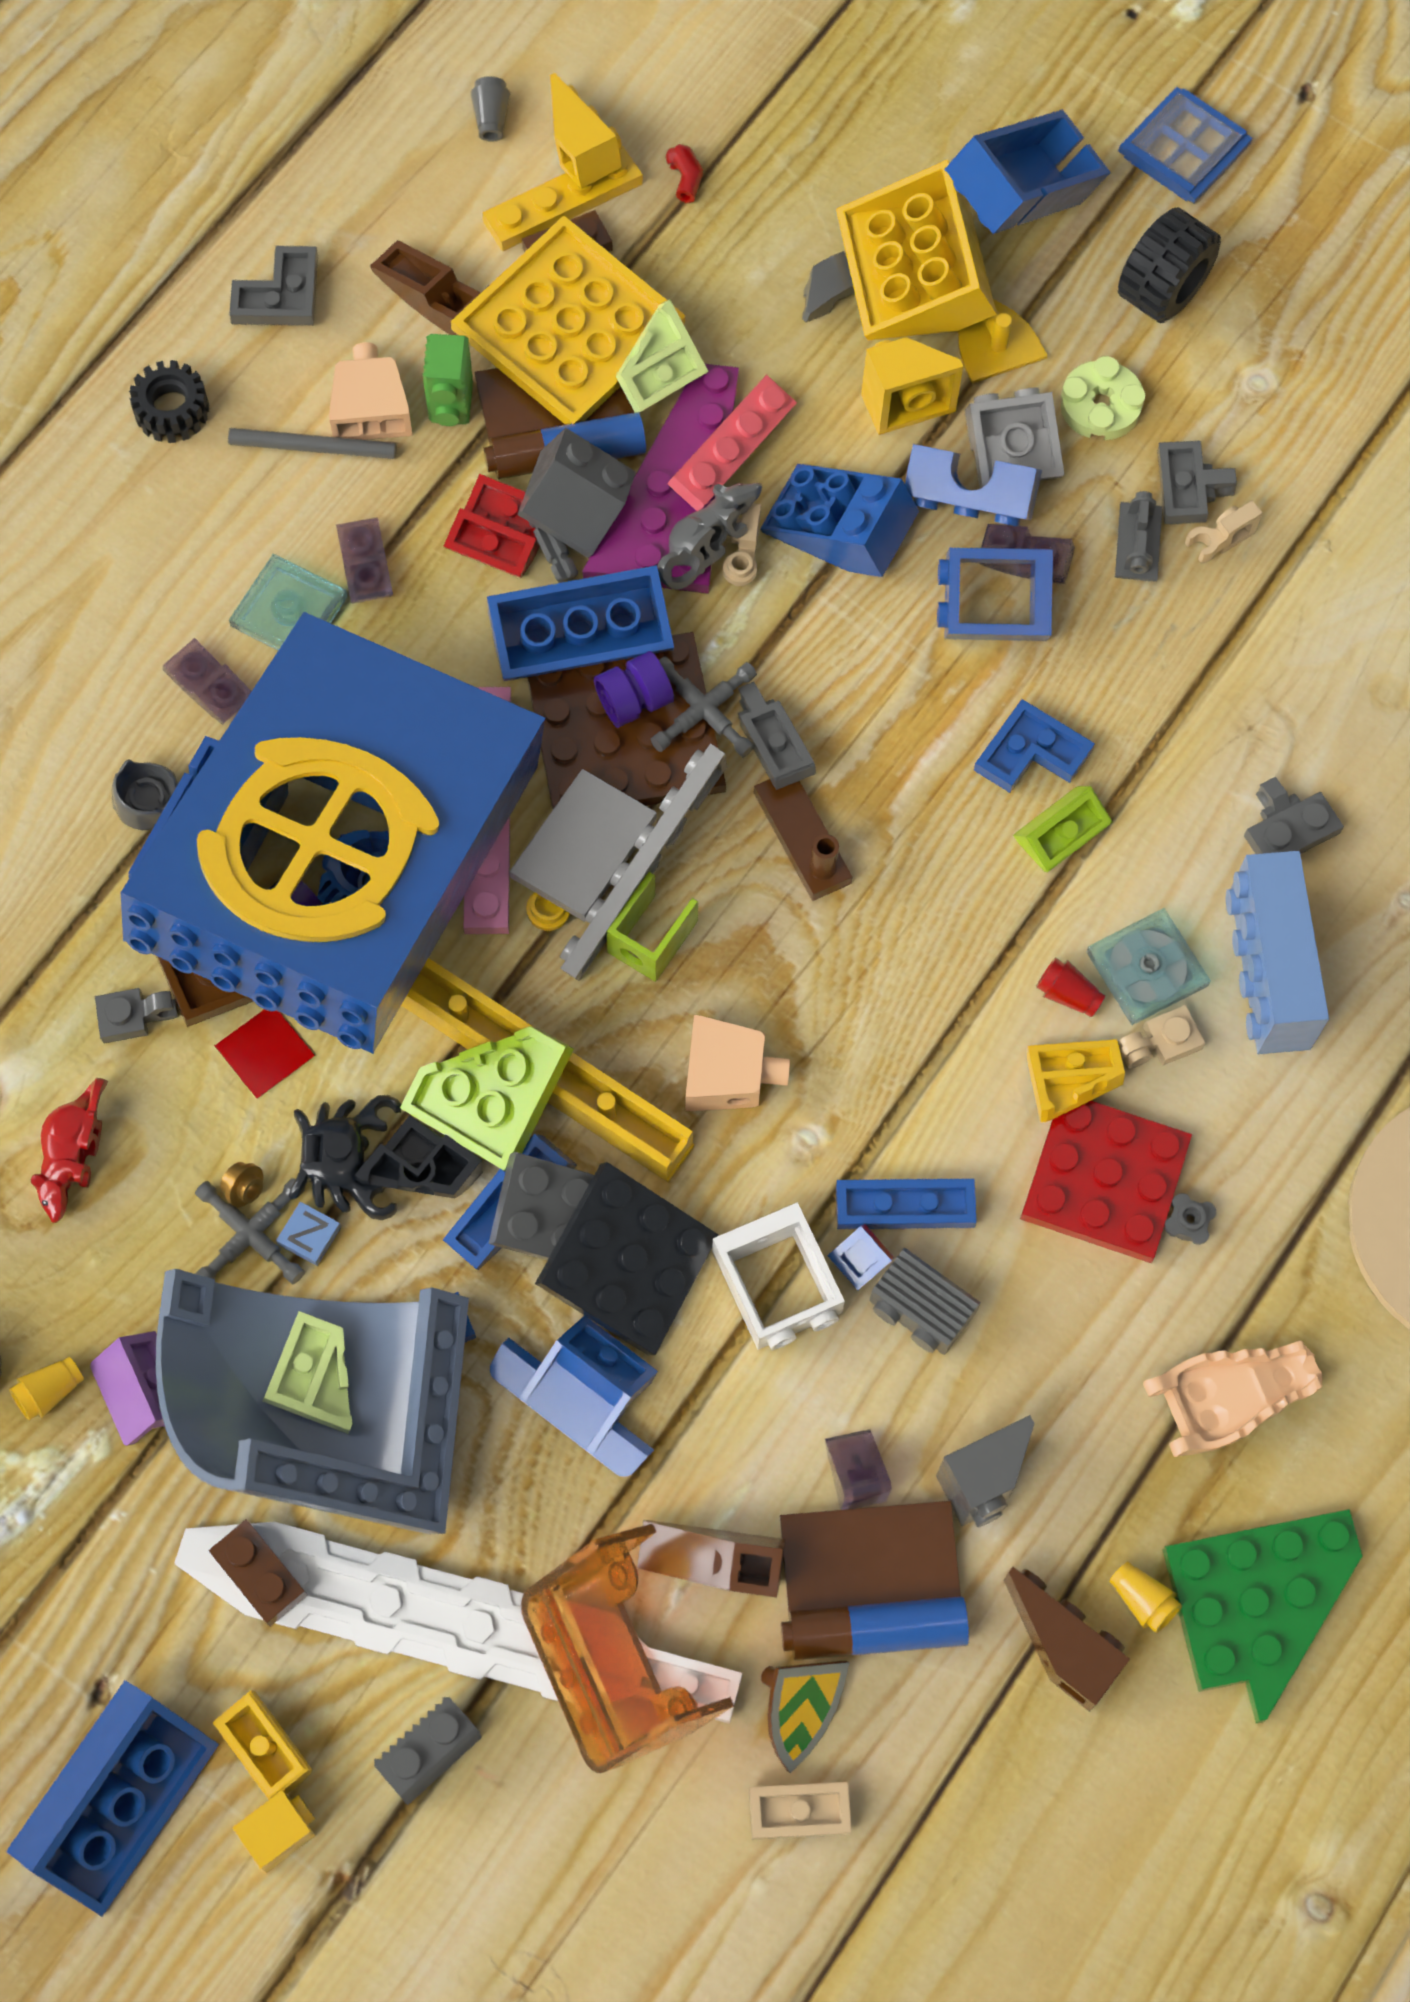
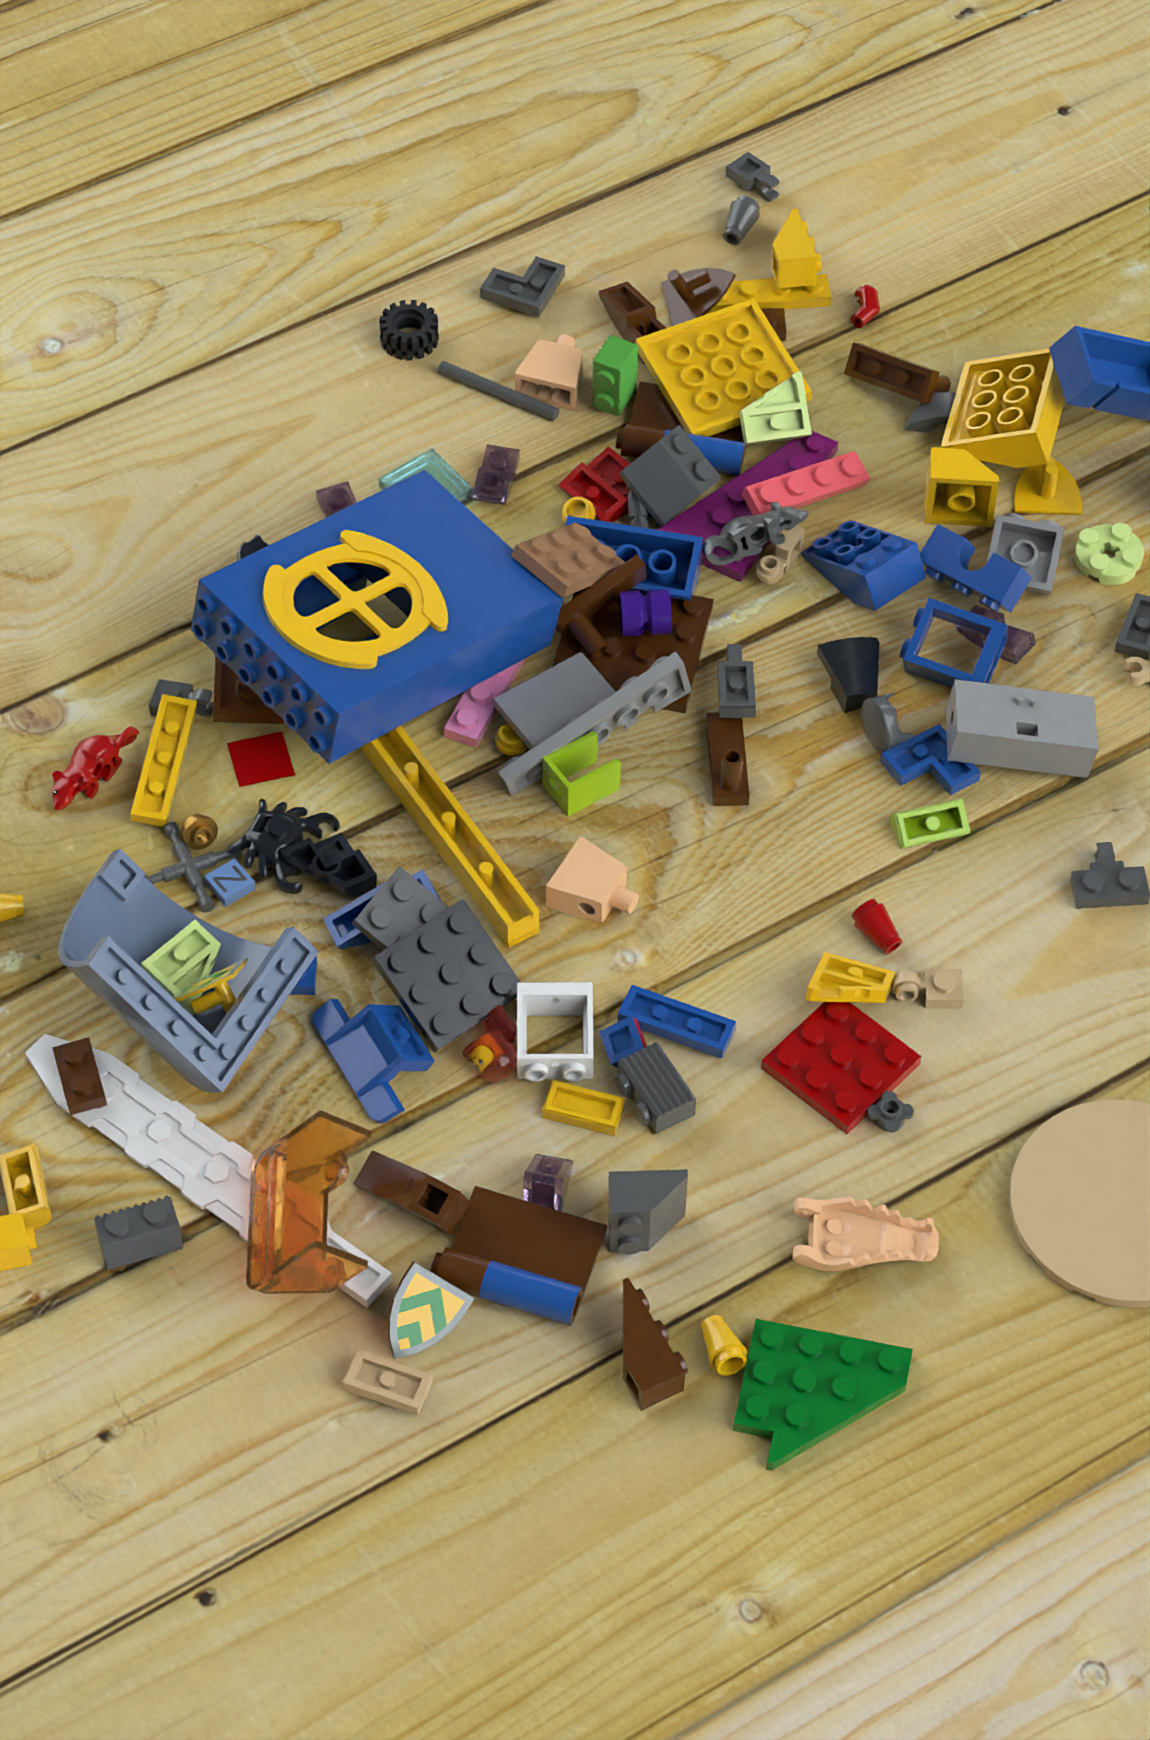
camera: 25 degrees right, 15 degrees down
(130, 1385) = (47, 926): medium lavender panel -> none
(155, 1106) = (163, 760): none -> yellow plate
(365, 1398) = (222, 992): none -> yellow shield
(474, 38) = (752, 172): none -> dark grey plate
(484, 228) = (695, 292): none -> shield
(485, 576) = (579, 508): none -> yellow plate
(490, 1092) = (406, 829): lime plate -> none
(523, 662) = (567, 558): none -> medium nougat plate
(556, 727) = (575, 613): none -> reddish brown piece
(705, 708) = (694, 645): dark grey piece -> none
(722, 1335) = (494, 1051): none -> clear red piece
(764, 255) = (895, 373): none -> reddish brown piece
(850, 1357) = (583, 1107): none -> yellow tile
(891, 664) = (852, 669): none -> black slope
(960, 725) = (880, 723): none -> dark grey hair
(1118, 672) = (1021, 728): none -> light grey brick
(1138, 538) = (1089, 652): dark grey hinge -> none
(1148, 966) = (946, 934): clear light blue piece -> none
(1277, 953) = (1045, 953): medium blue piece -> none

